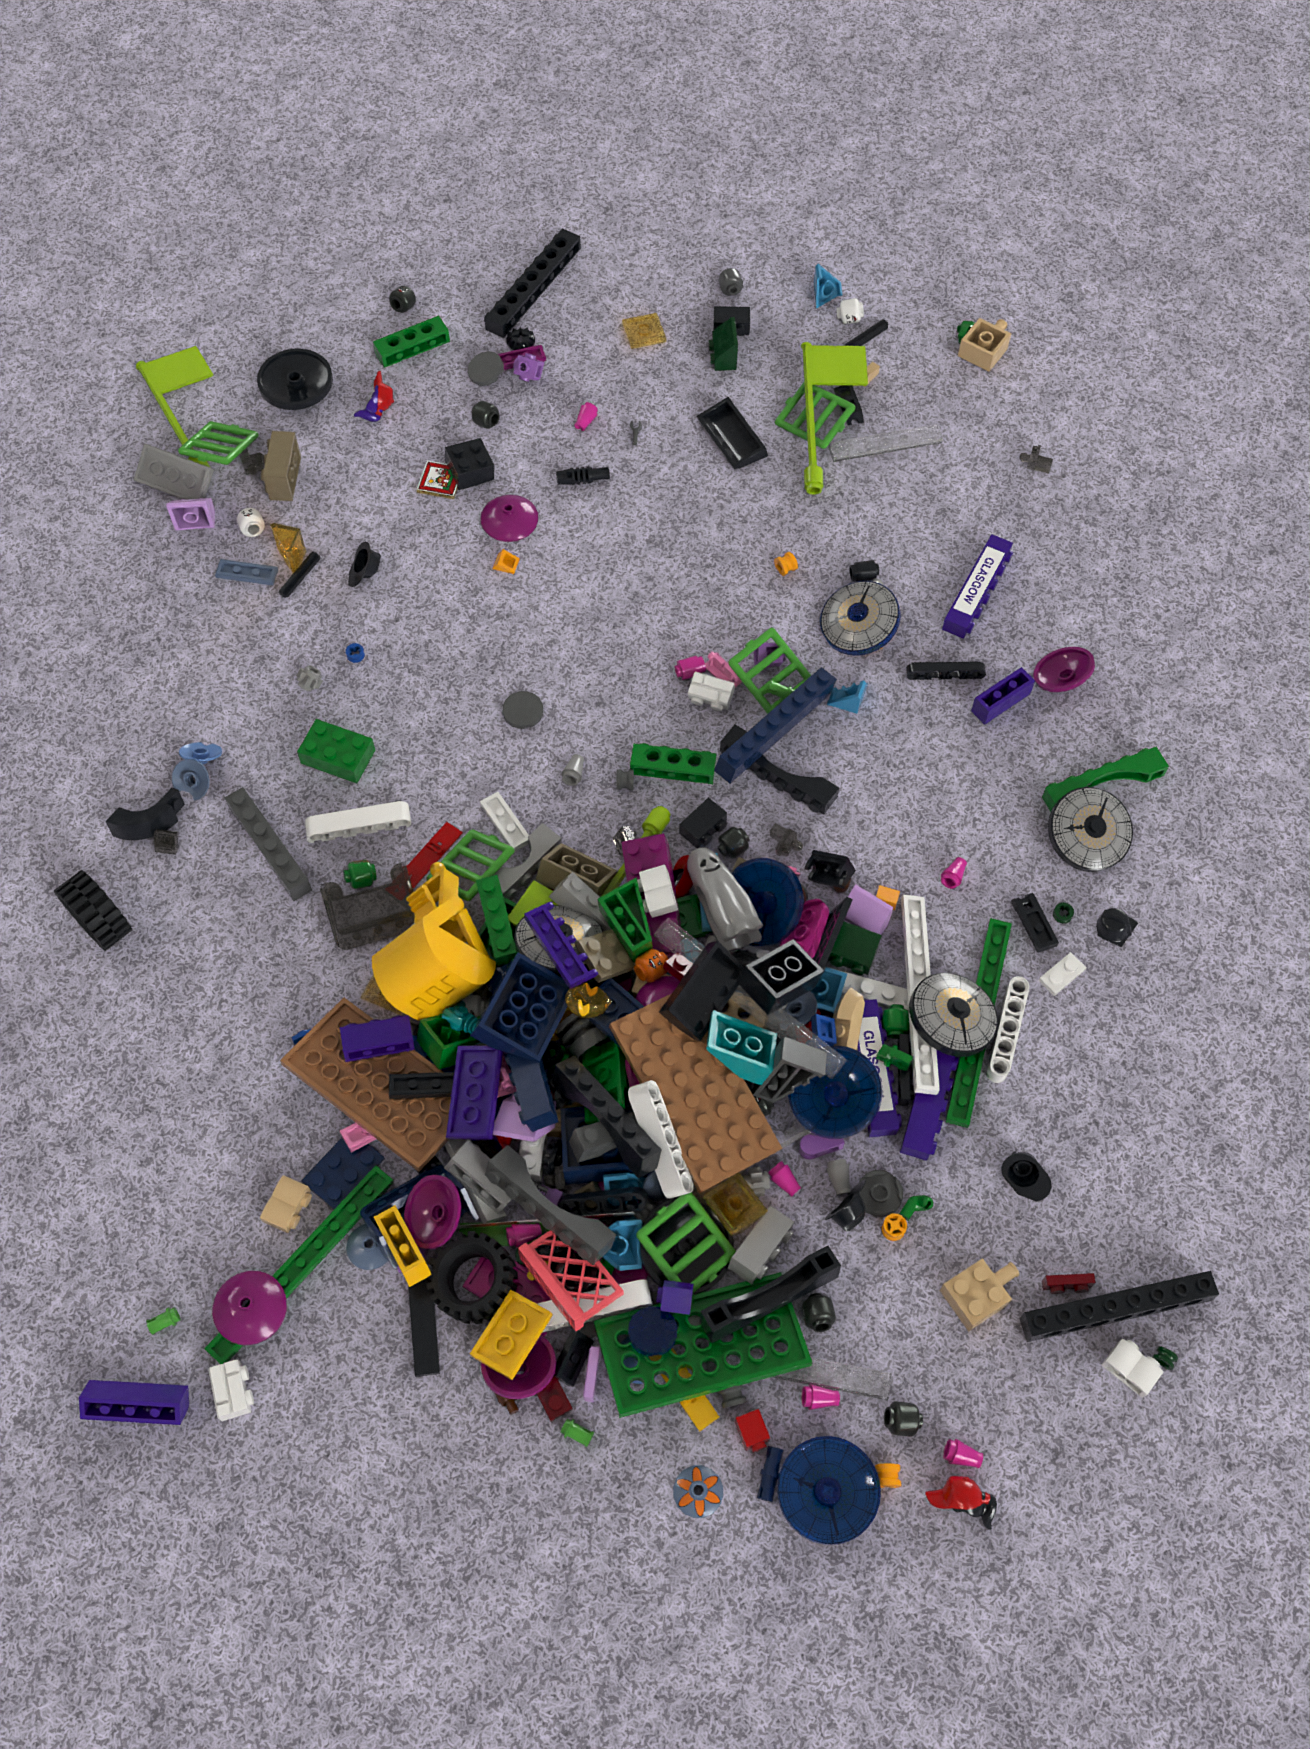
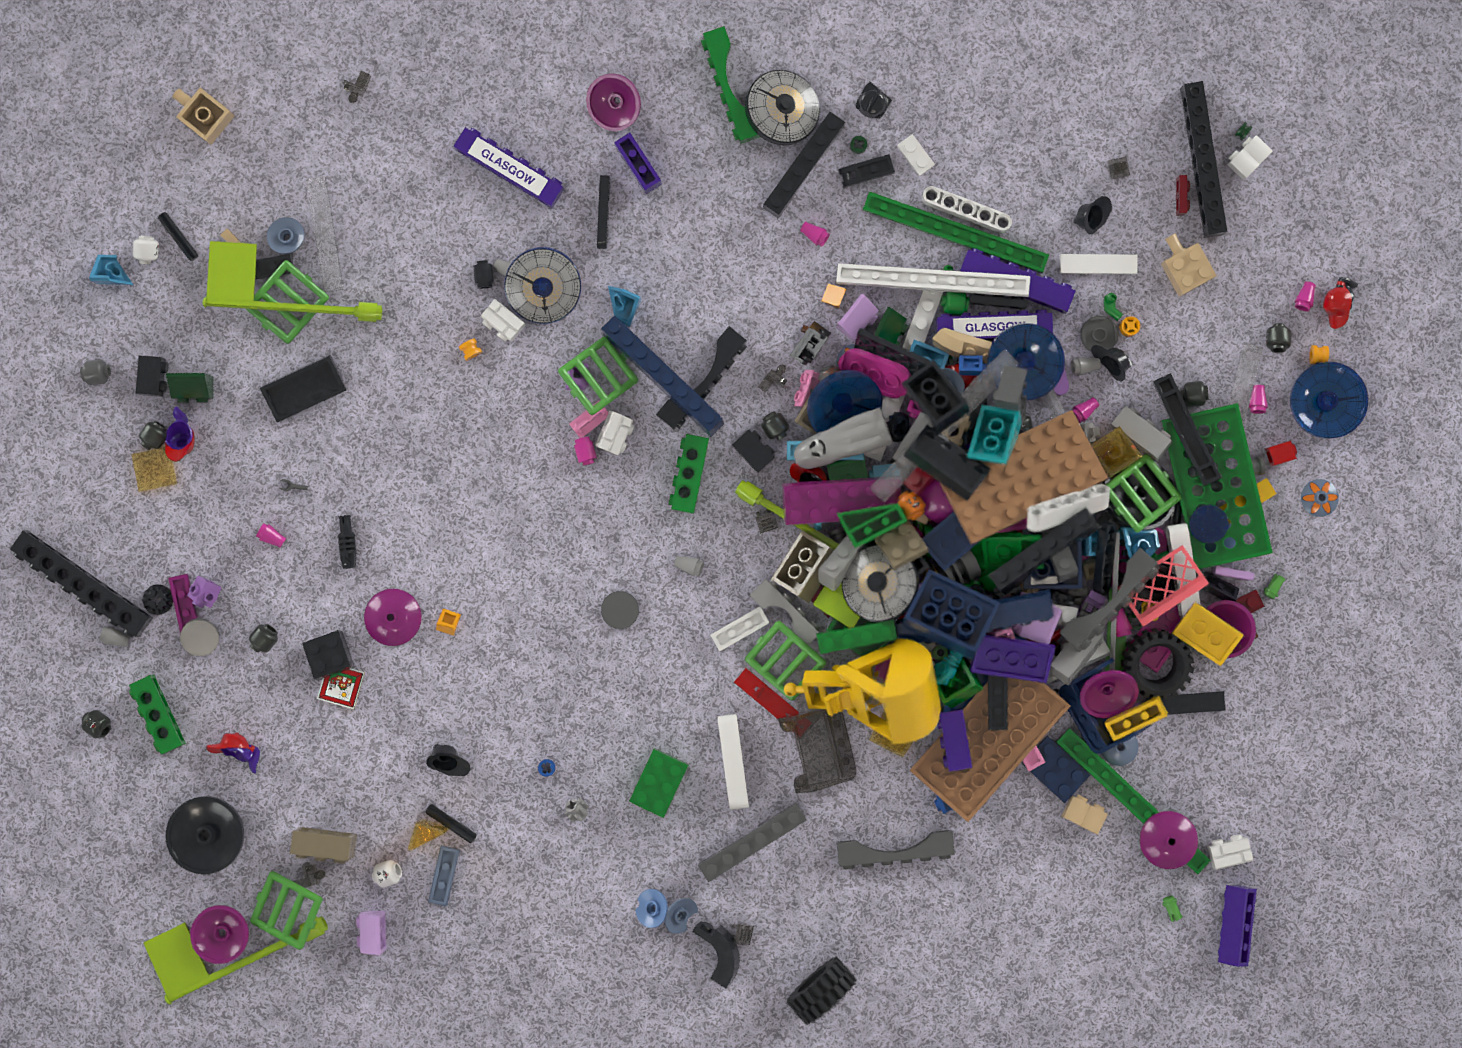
camera: 85 degrees left, 25 degrees up
(172, 473) = (323, 954): light grey tile -> none
(197, 387) = (207, 939): none -> magenta dish
(256, 1035) = (935, 844): none -> dark grey arch
(360, 874) = (786, 758): green head -> none
(484, 305) = (112, 636): none -> light grey cone
(558, 945) = (898, 583): dark purple hinge -> none
(587, 1001) = (949, 561): clear yellow hair -> none
(625, 779) = (703, 518): dark grey wheel -> none
(657, 890) = (845, 495): white brick -> none
(675, 324) = (153, 435): none -> pearl dark grey head
(675, 1297) = (1185, 504): dark purple brick -> none
(676, 343) = (179, 437): none -> dark purple hair
(770, 1473) = (1312, 443): dark blue pin -> none
(779, 690) = (621, 368): bright green pin -> none
(818, 589) = (502, 320): none -> white brick
(879, 411) = (278, 231): none -> sand blue dish
(892, 1055) = (991, 313): green piece -> none
(953, 1014) = (958, 254): dish -> none
(963, 328) = (176, 130): green piece -> none
(966, 1188) = (1098, 264): none -> white tile
(1060, 869) = (803, 164): none -> black arch
(1088, 1205) = (1118, 168): none -> clear smoke tile

